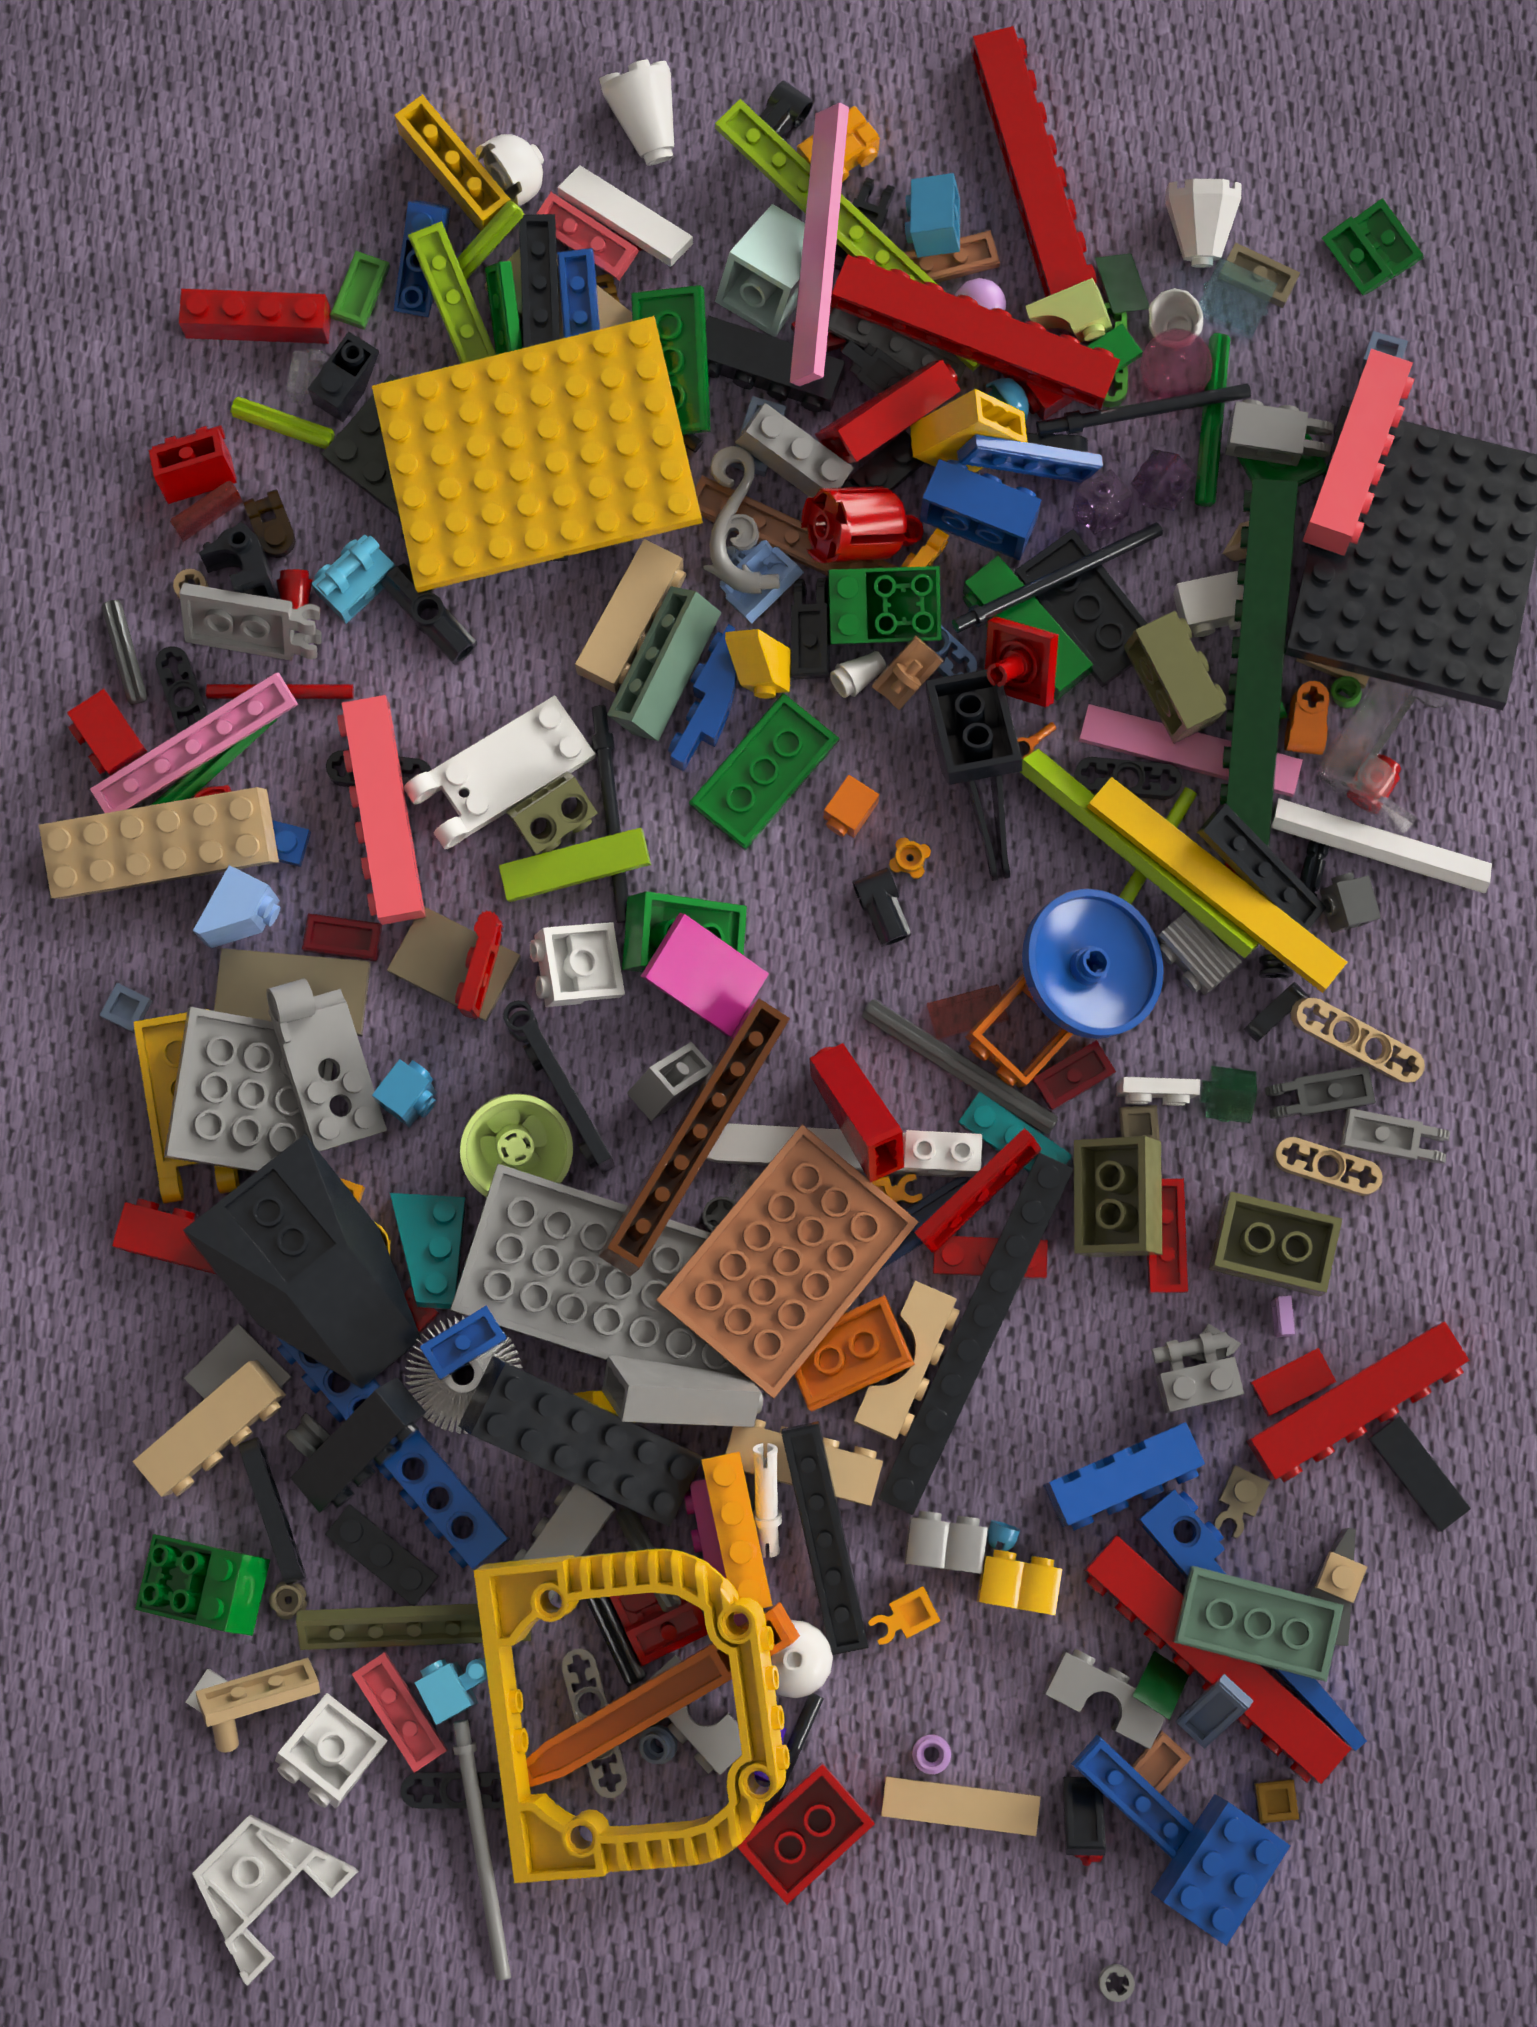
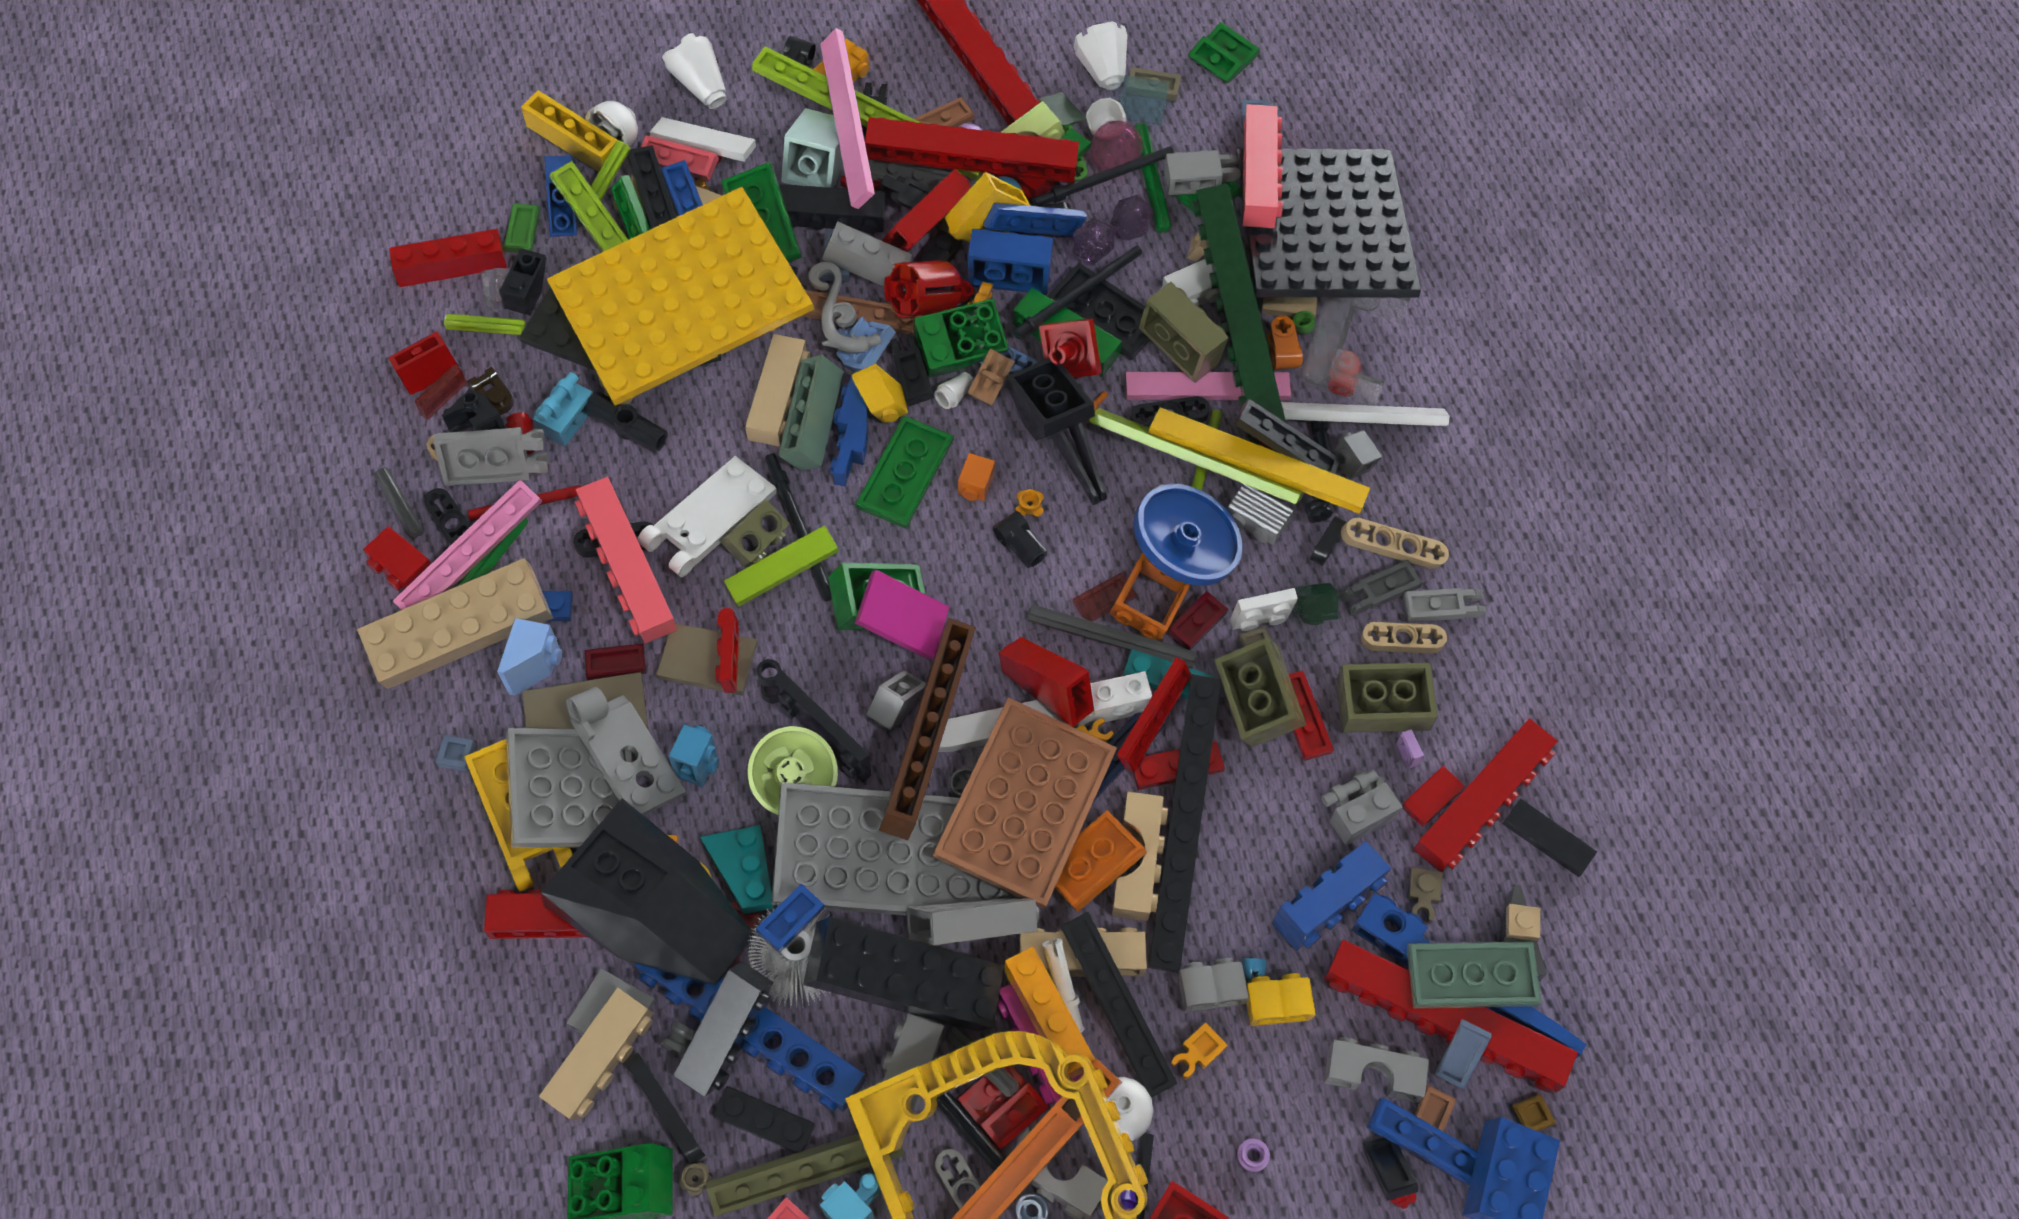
camera: 20 degrees left, 15 degrees down
(577, 964) = (802, 633): white plate -> none
(934, 215) = (920, 92): dark azure brick -> none
(960, 1806) = (1289, 1190): tan tile -> none
(1161, 1685) = (1415, 1046): dark green sticker -> none

